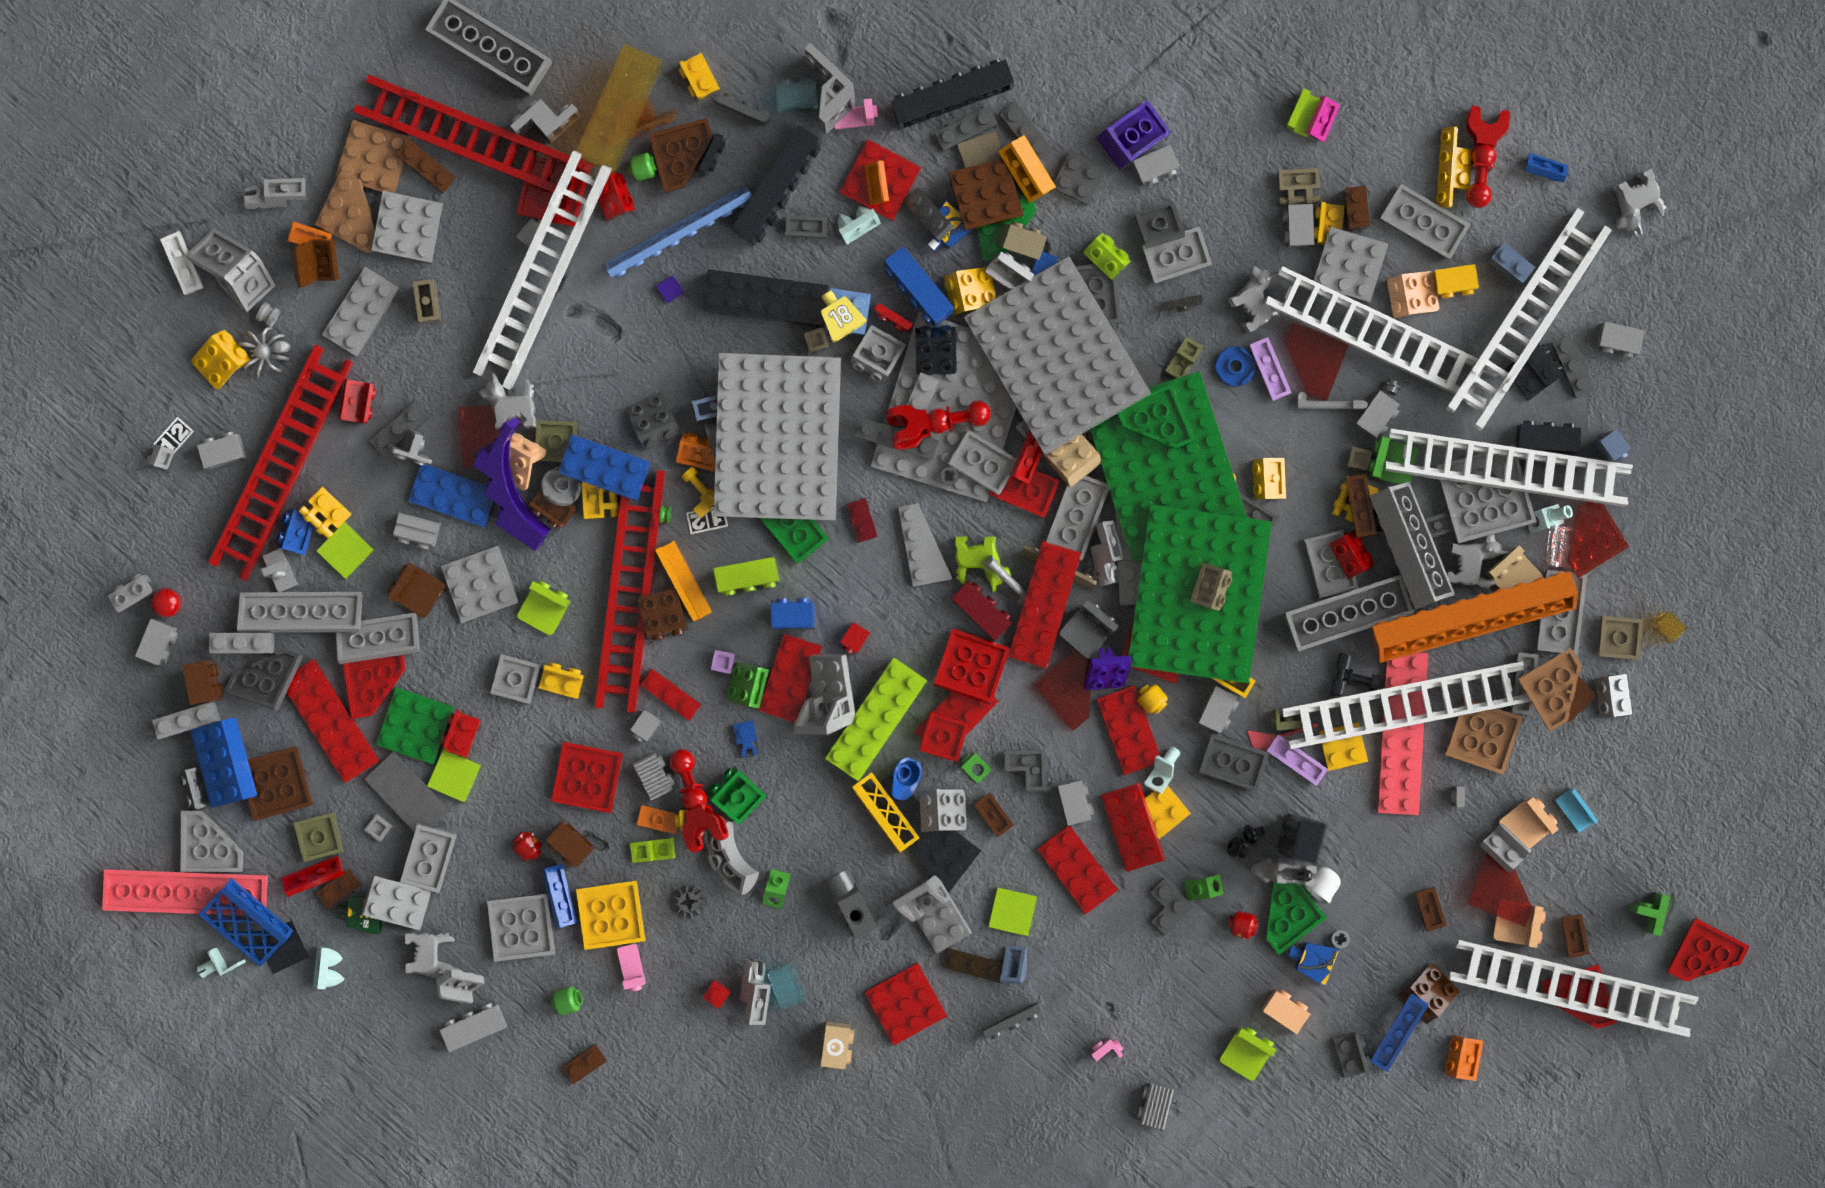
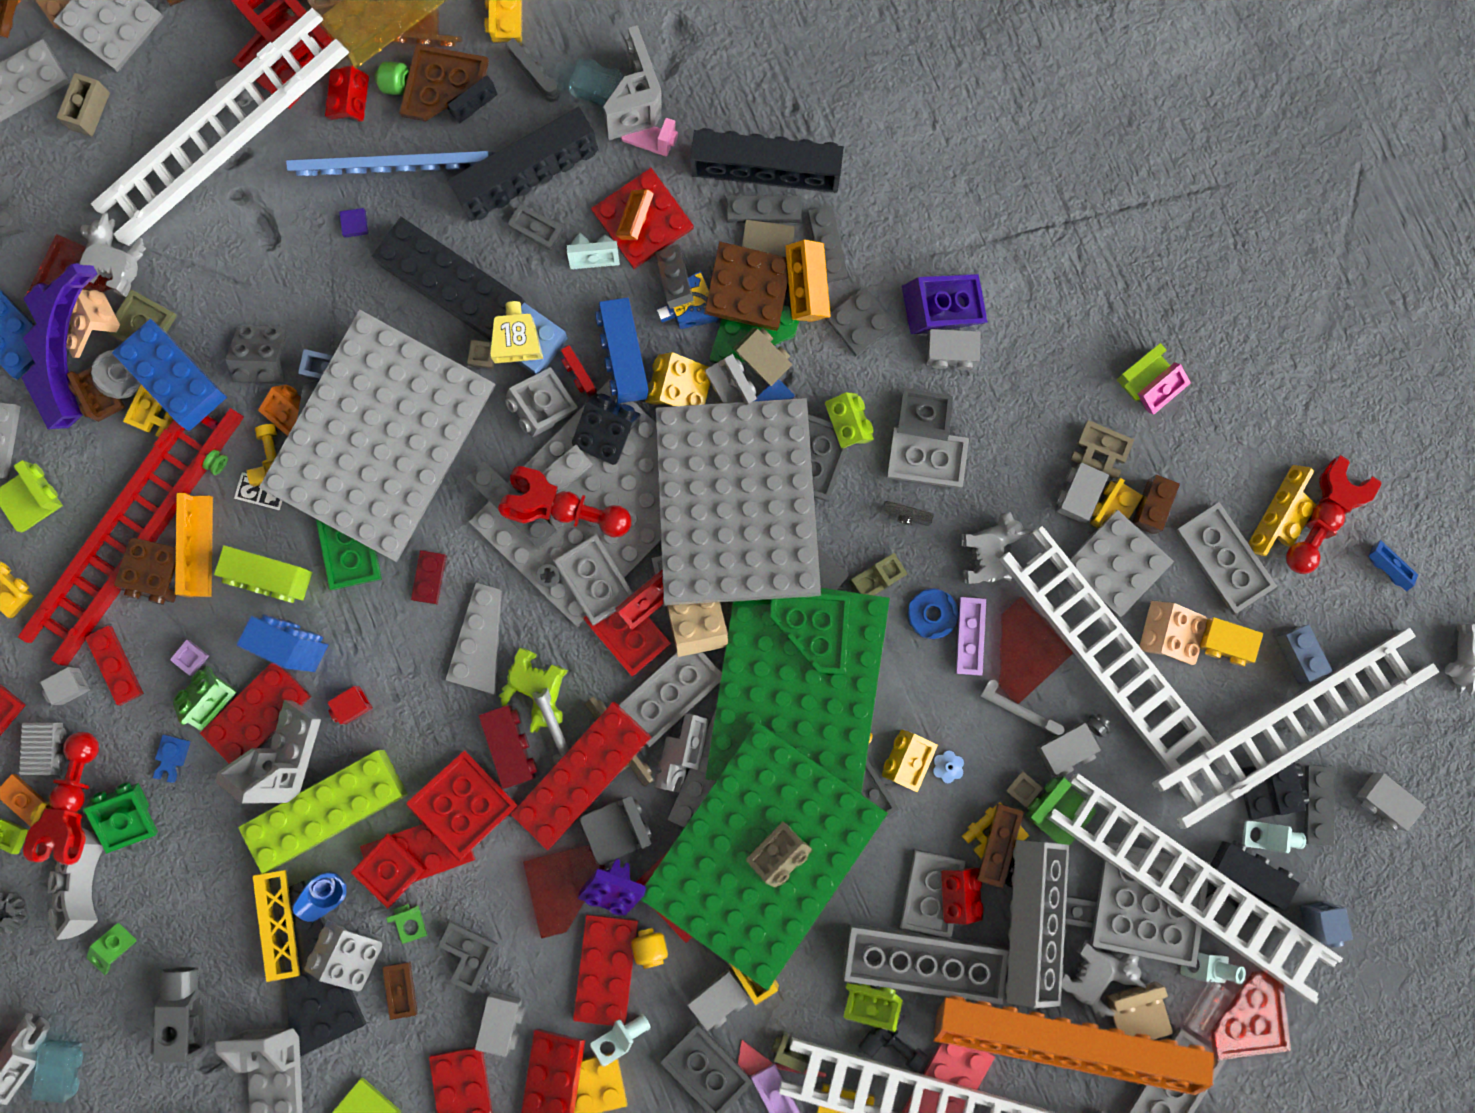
camera: 25 degrees right, 5 degrees down
(1293, 469) = (941, 766): none -> light blue plant
(1326, 659) = (873, 1006): none -> lime bracket
(1550, 405) = (1273, 837): none -> light aqua bracket

